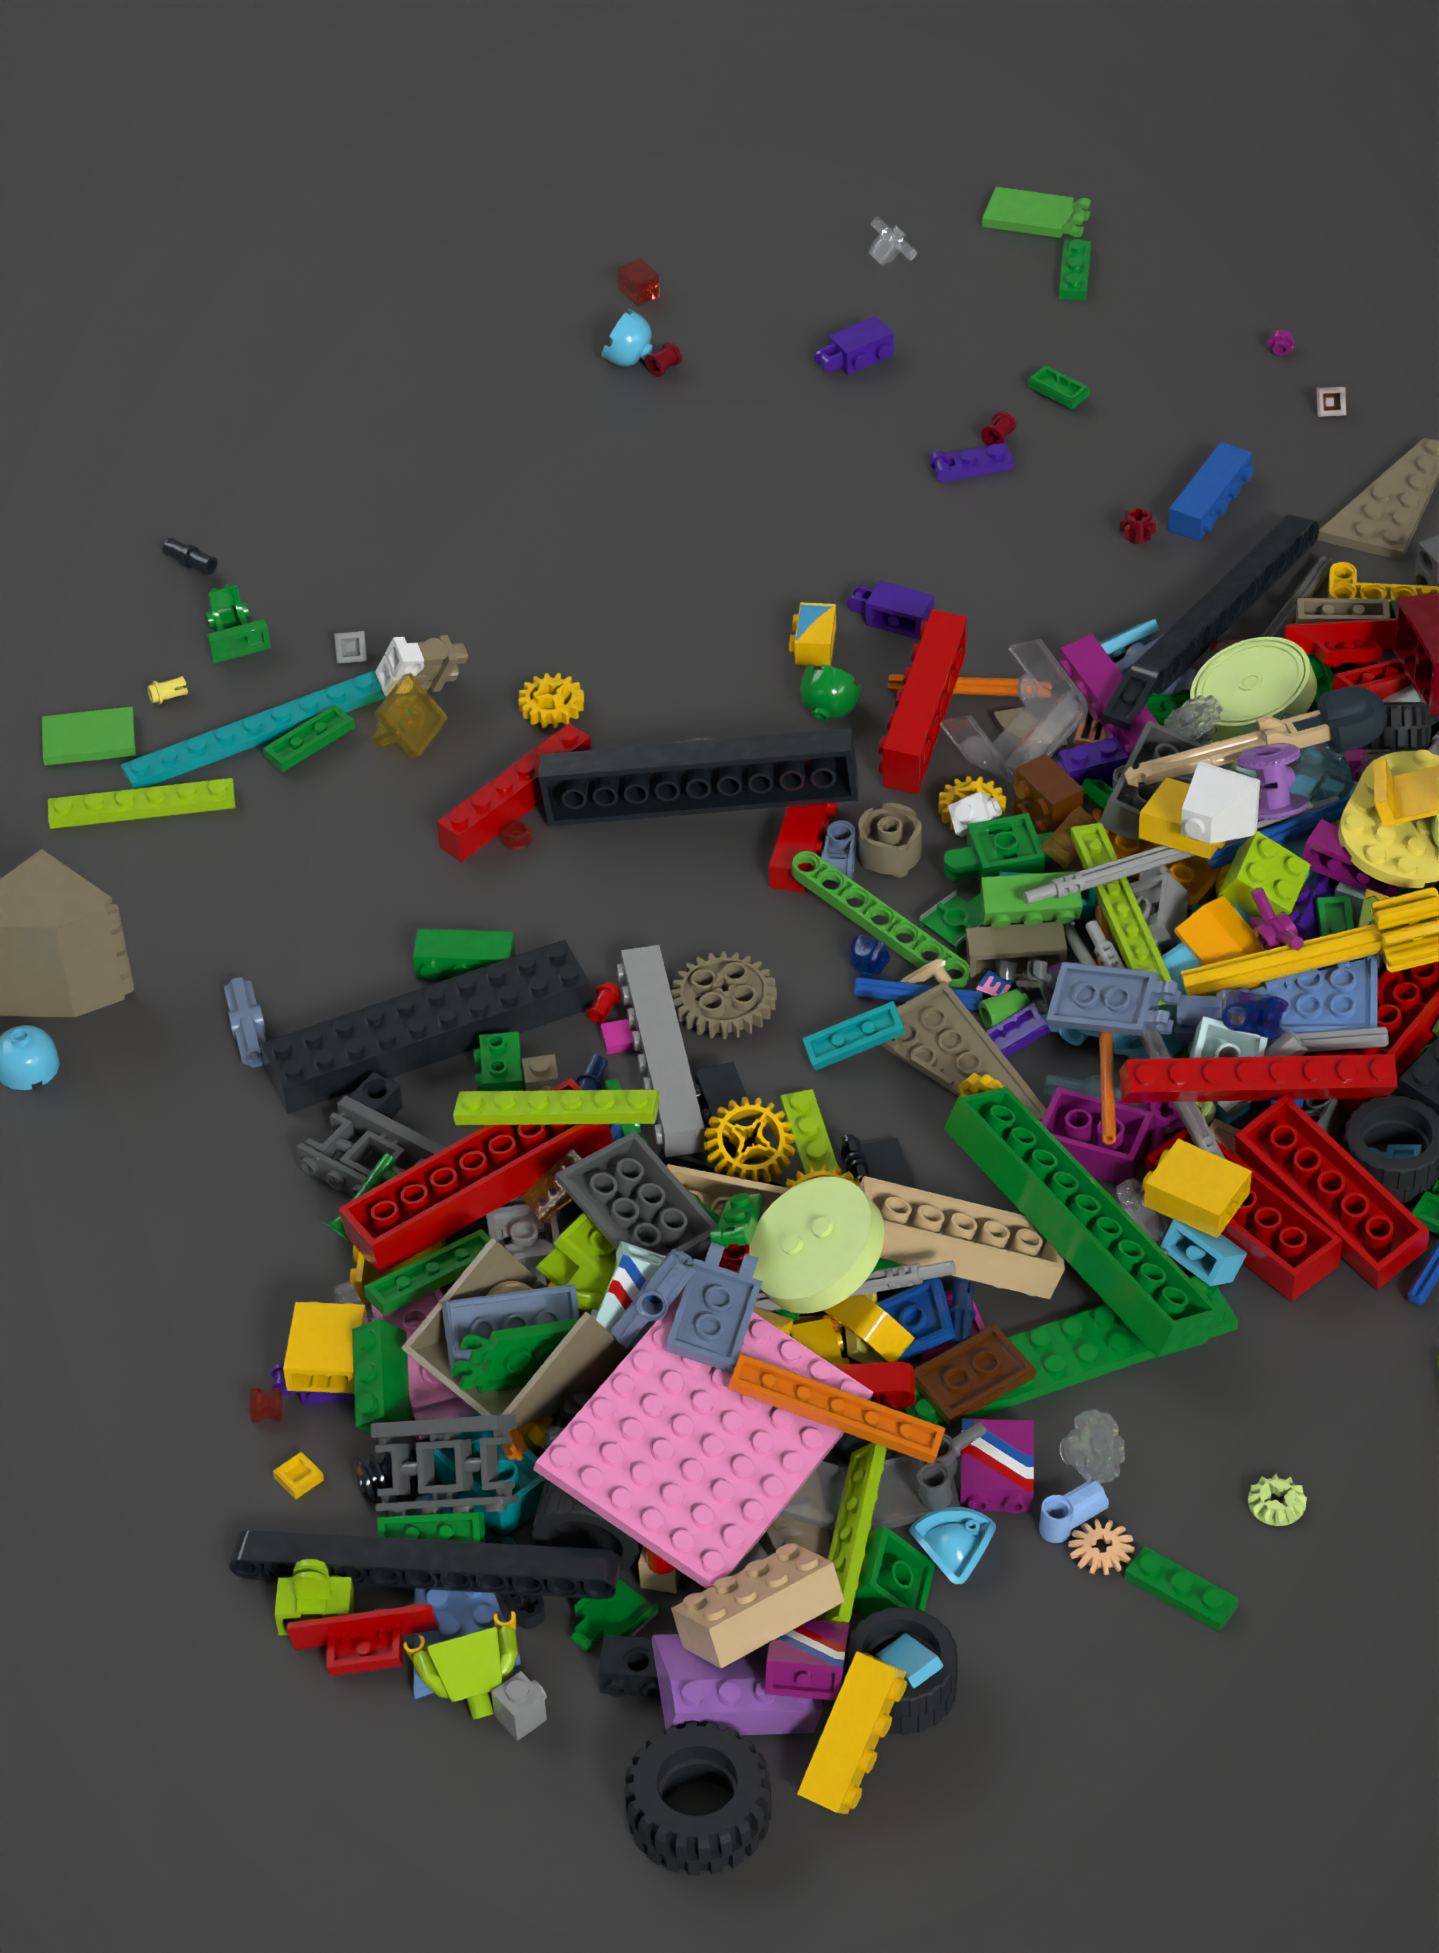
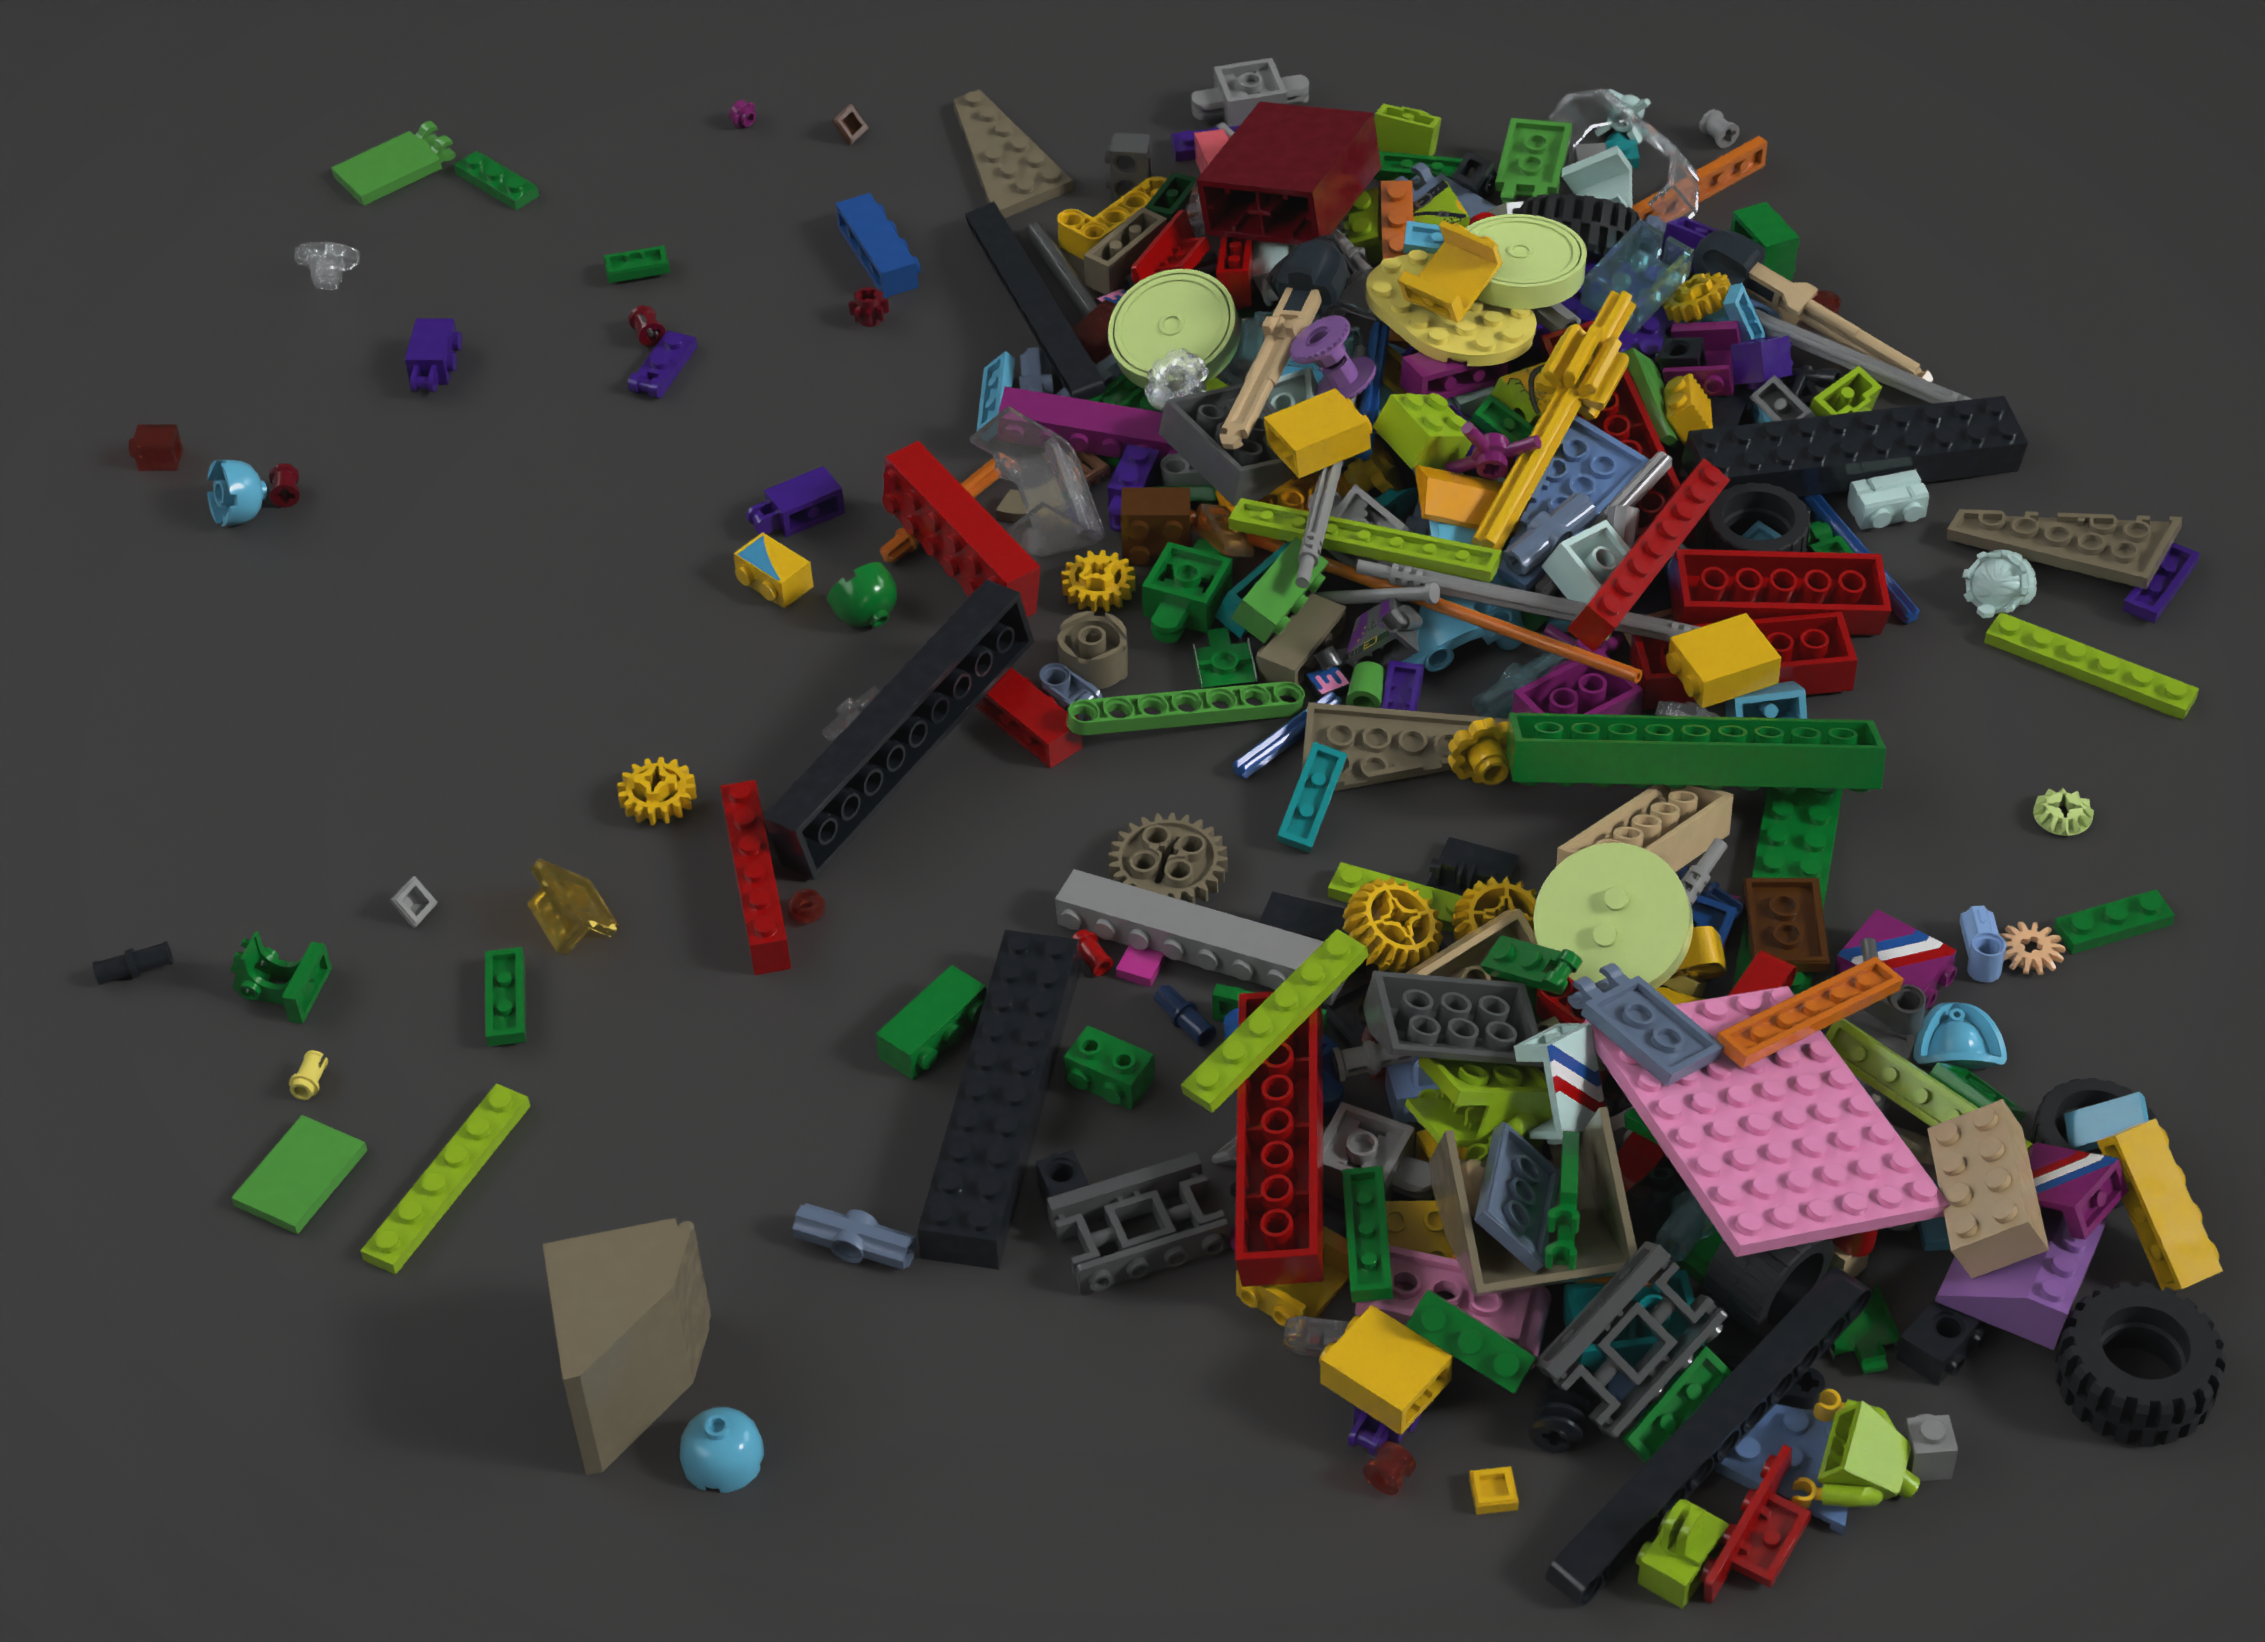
camera: 55 degrees left, 0 degrees up
(249, 732) = (444, 1029): teal plate -> none
(380, 1172) = (1187, 1216): green piece -> none
(428, 661) = (517, 853): hips -> none
(540, 1073) = (1163, 1039): dark tan brick -> none
(545, 1183) = (1343, 1056): clear orange slope -> none
(664, 1283) = (1598, 1058): sand blue piece -> none
(867, 955) = (1212, 741): clear blue piece -> none
(934, 968) = (1276, 714): tan bar -> none
(973, 809) = (1126, 578): white bracket -> none
(1094, 1446) = (1929, 891): clear plant -> none
(1111, 1000) = (1473, 594): sand blue tile -> none
(1128, 700) = (1109, 407): black plate -> none
(1220, 805) = (1361, 389): white slope -> none
(1256, 1014) = (1588, 509): clear blue piece -> none

